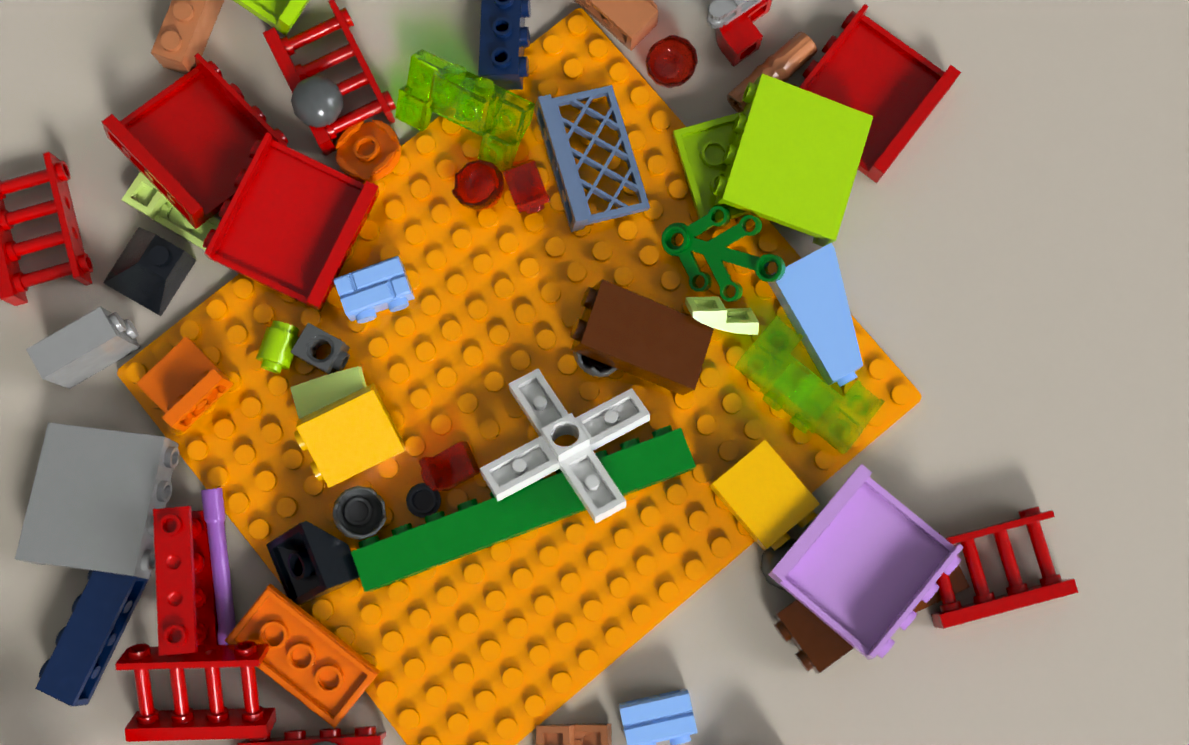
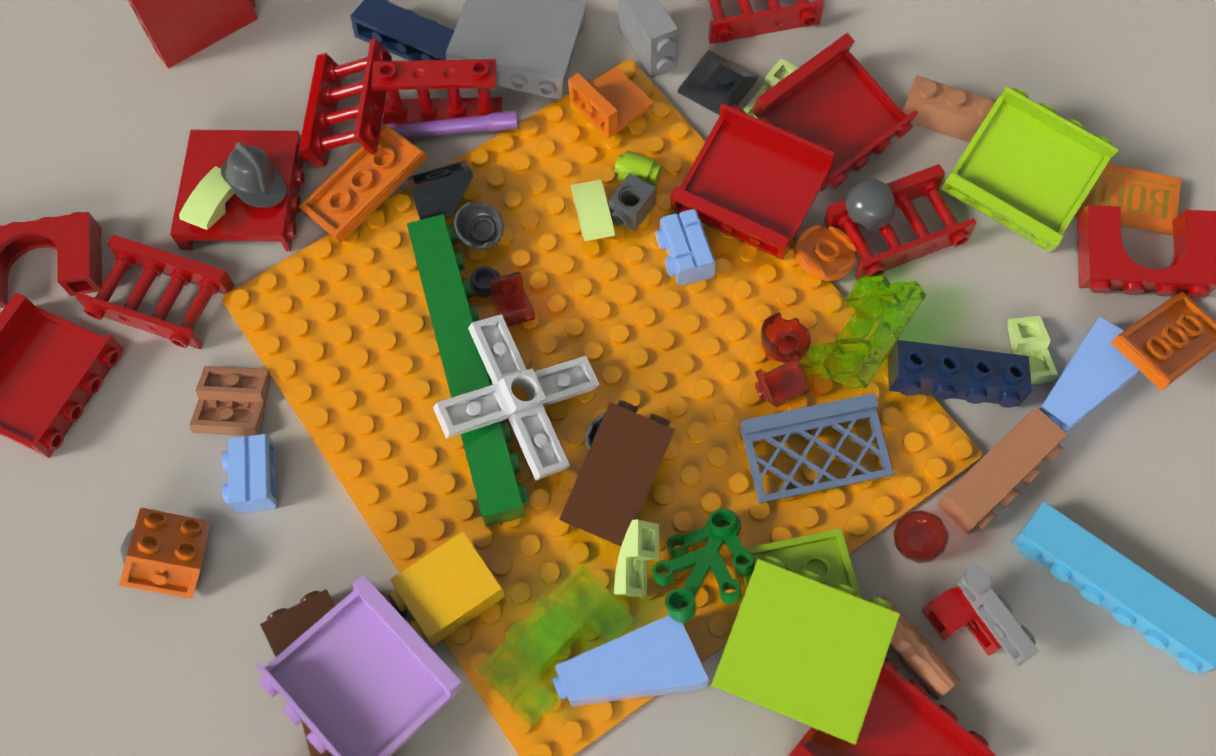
camera: 95 degrees right, 15 degrees down
(349, 436) = (549, 219): yellow brick -> none

